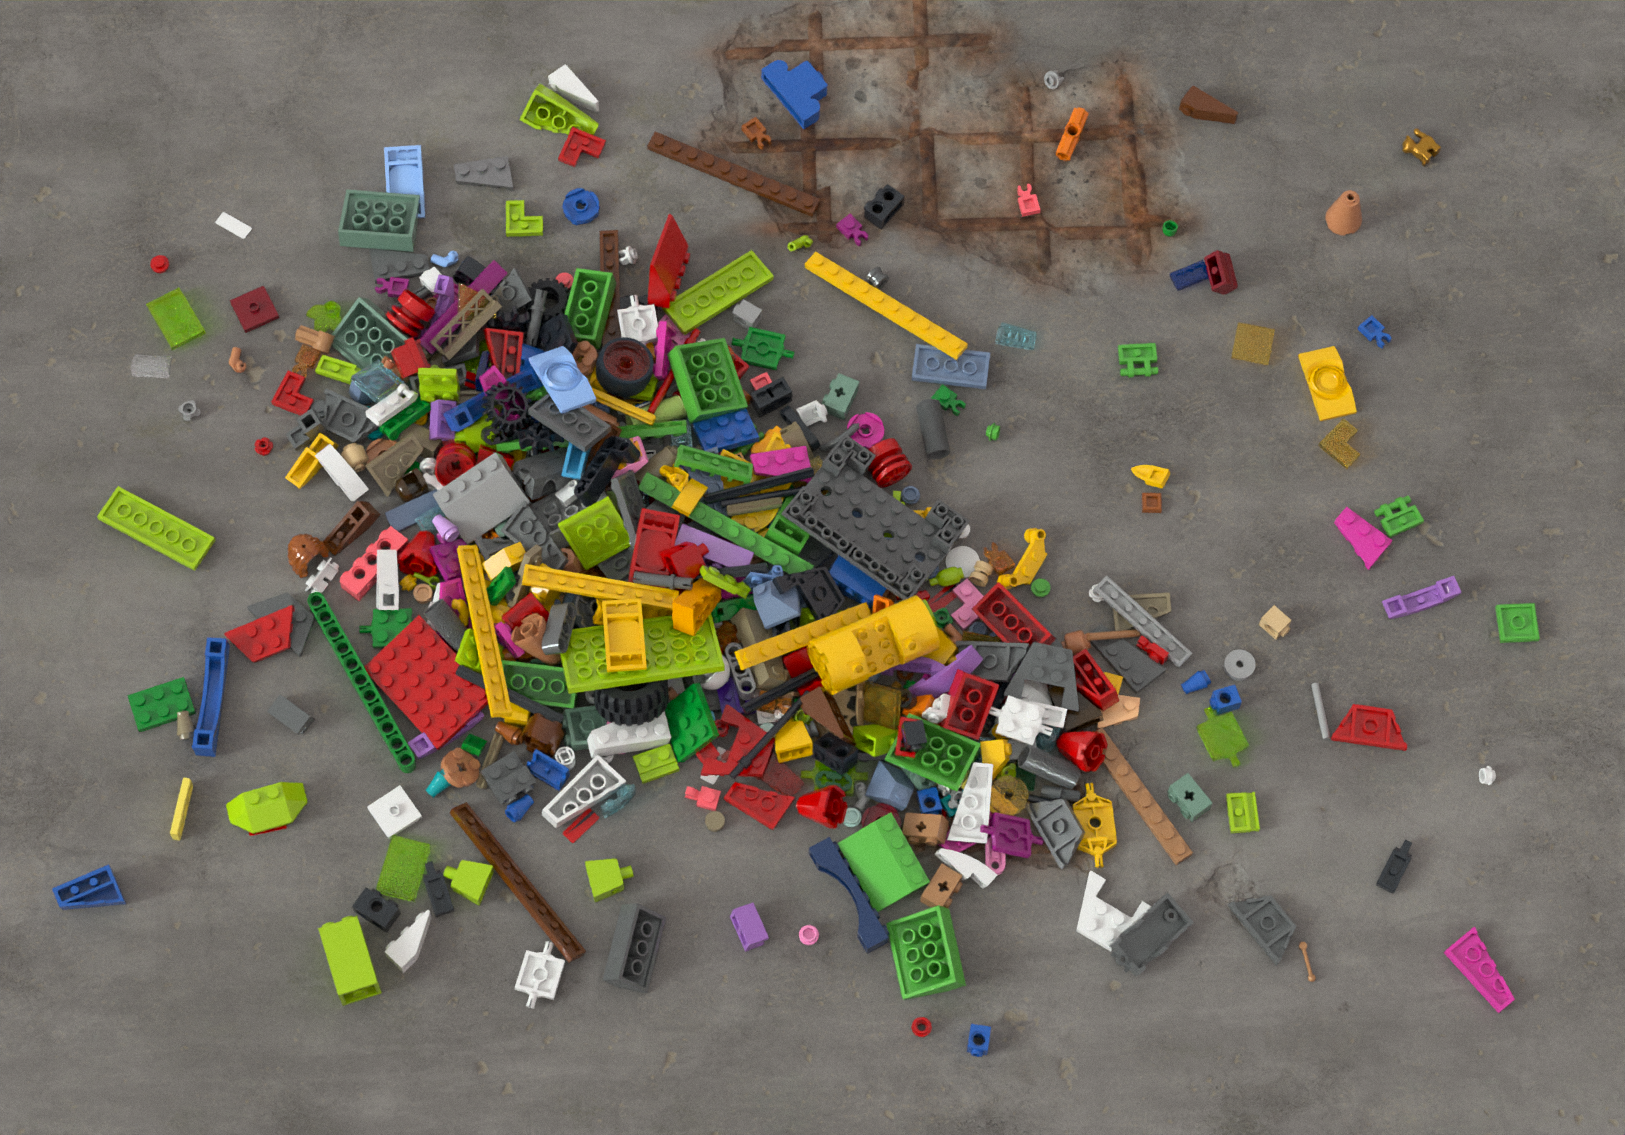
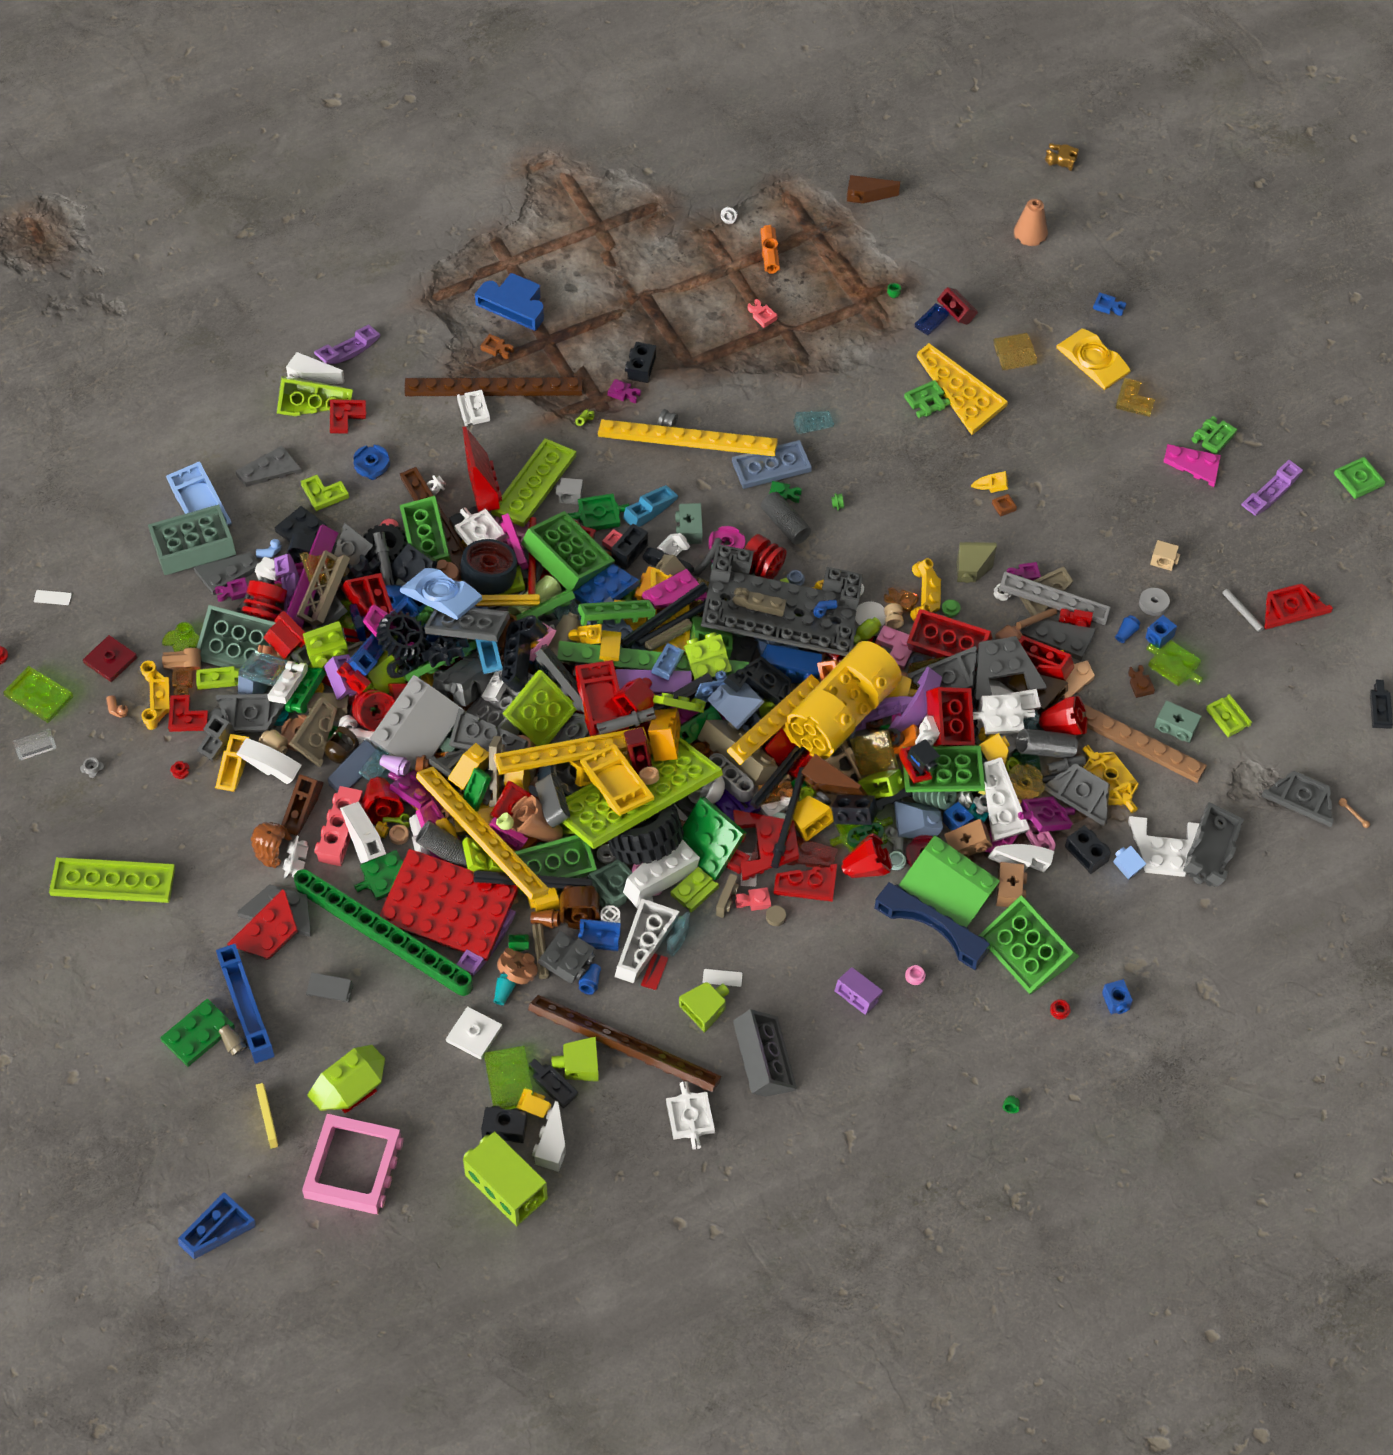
camera: 25 degrees left, 10 degrees down
(250, 912) = (346, 1198): none -> bright pink piece
(278, 365) = (158, 695): none -> yellow plate
(409, 903) = (533, 1103): none -> yellow brick
(448, 432) = (355, 679): none -> red plate
(469, 537) = (422, 763): none -> dark orange plate
(485, 246) = (299, 522): none -> black plate
(507, 630) = (505, 821): none -> yellowish green hinge
(617, 78) = (350, 348): none -> medium lavender slope
(637, 858) = (722, 977): none -> white sticker
(657, 642) = (649, 775): none -> light nougat tile
(658, 615) = (637, 749): none -> dark red brick
(685, 779) = (725, 902): none -> dark tan plate
(702, 189) = (473, 408): none -> white plate
(735, 535) = (668, 661): none -> medium blue plate
(774, 545) = (707, 655): none -> lime plate
(813, 362) = (649, 506): none -> dark azure slope
(827, 1095) = (1011, 1104): none -> green hinge
(853, 510) = (759, 602): none -> dark tan hinge
(911, 539) = (822, 606): none -> blue arm
(1028, 886) = (1084, 851): none -> black brick
(1062, 915) = (1128, 861): none -> light blue brick
(1085, 551) = (974, 560): none -> olive slope
(1132, 583) = (1028, 571): none -> magenta plate
(1179, 371) = (967, 395): none -> yellow wing
(1179, 743) = (1140, 684): none -> reddish brown plate

